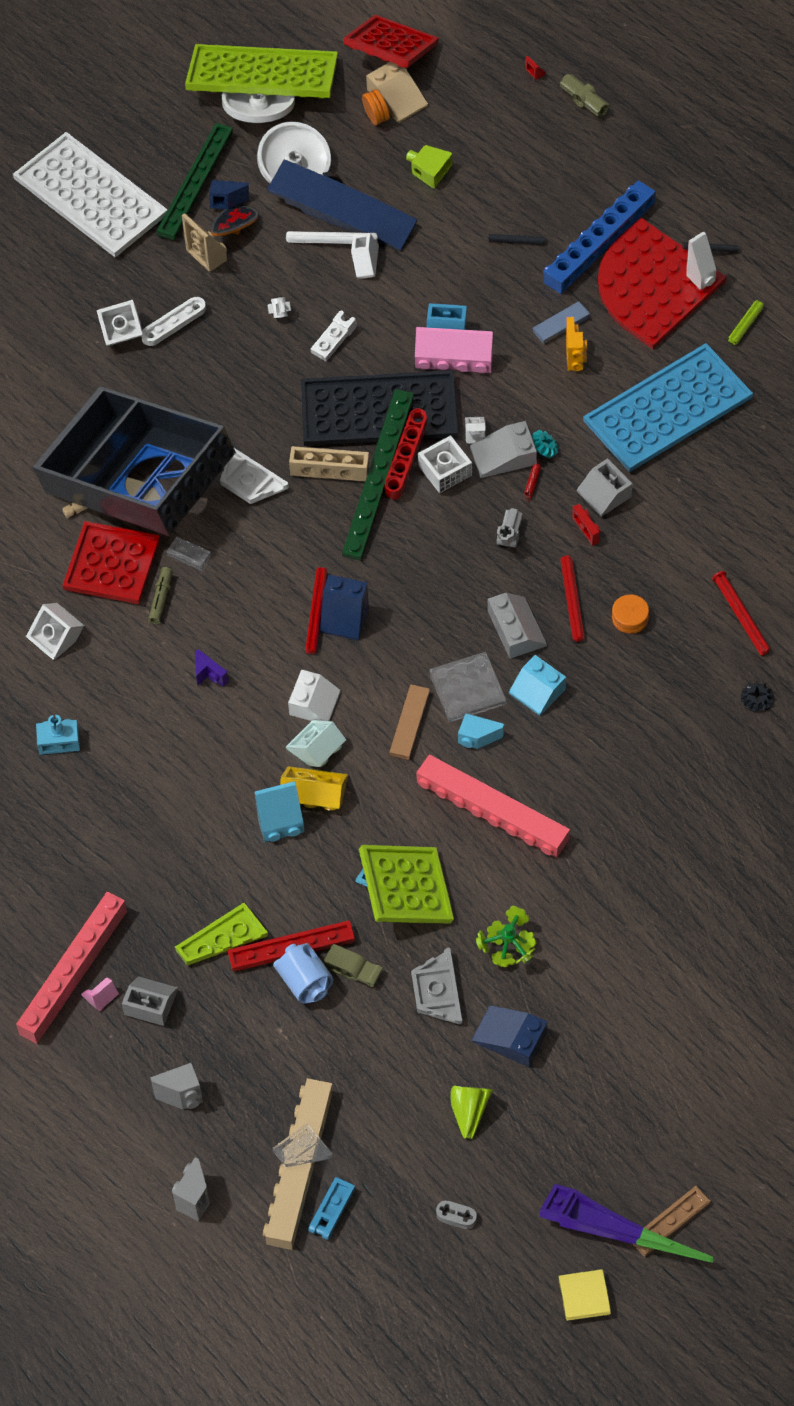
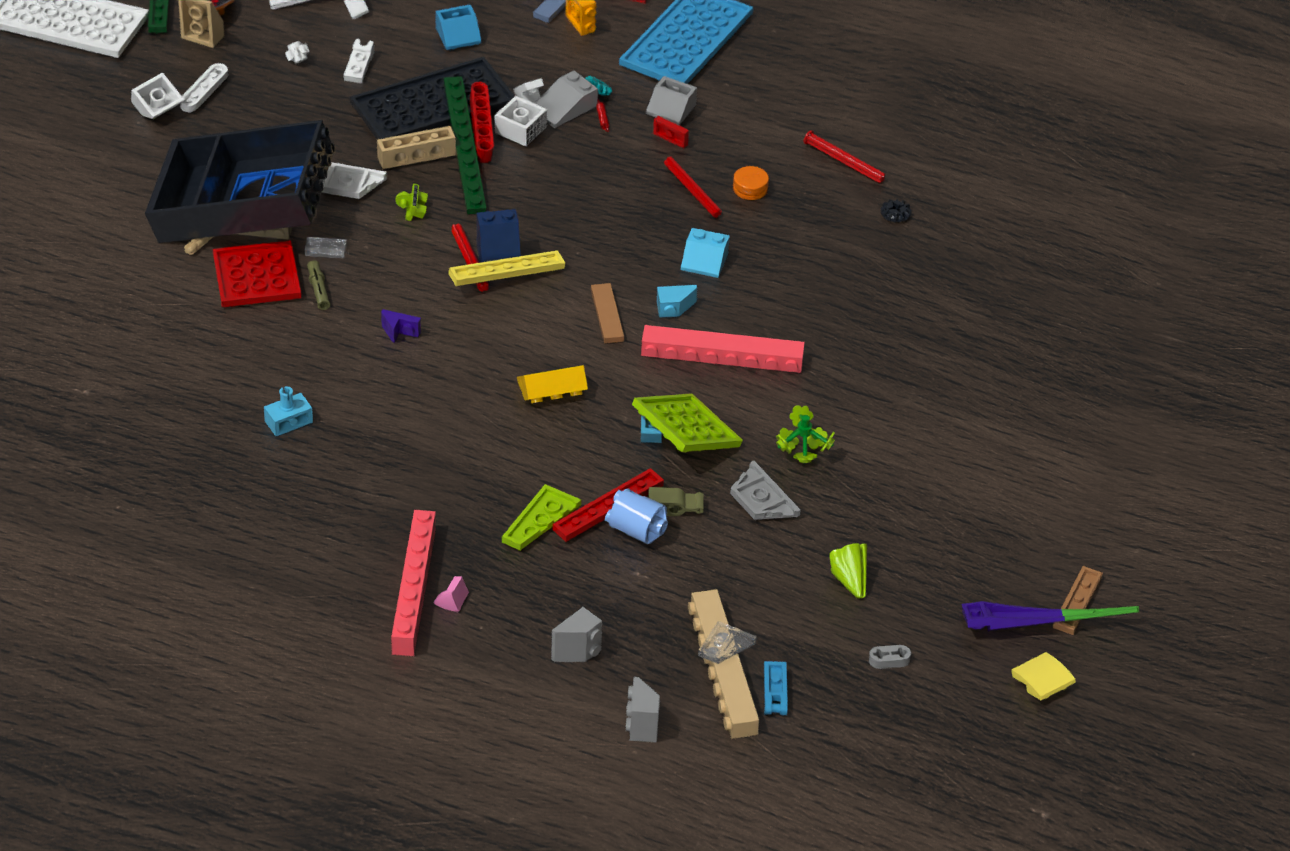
camera: 30 degrees left, 15 degrees down
(54, 630) = (234, 337): white slope -> none
(149, 1000) = (504, 586): light grey slope -> none
(279, 812) = (538, 402): medium azure slope -> none
(301, 522) = (412, 202): none -> lime hips
(313, 697) = (509, 318): white slope -> none
(317, 742) = (534, 349): light aqua slope -> none
(338, 639) = (506, 268): none -> light yellow plate
(454, 349) = (476, 38): bright pink slope -> none
(467, 686) = (641, 273): clear plate -> none
(509, 531) = (607, 151): light grey piece -> none
(511, 1034) = (849, 507): dark blue slope -> none
(515, 624) = (653, 218): light grey slope -> none

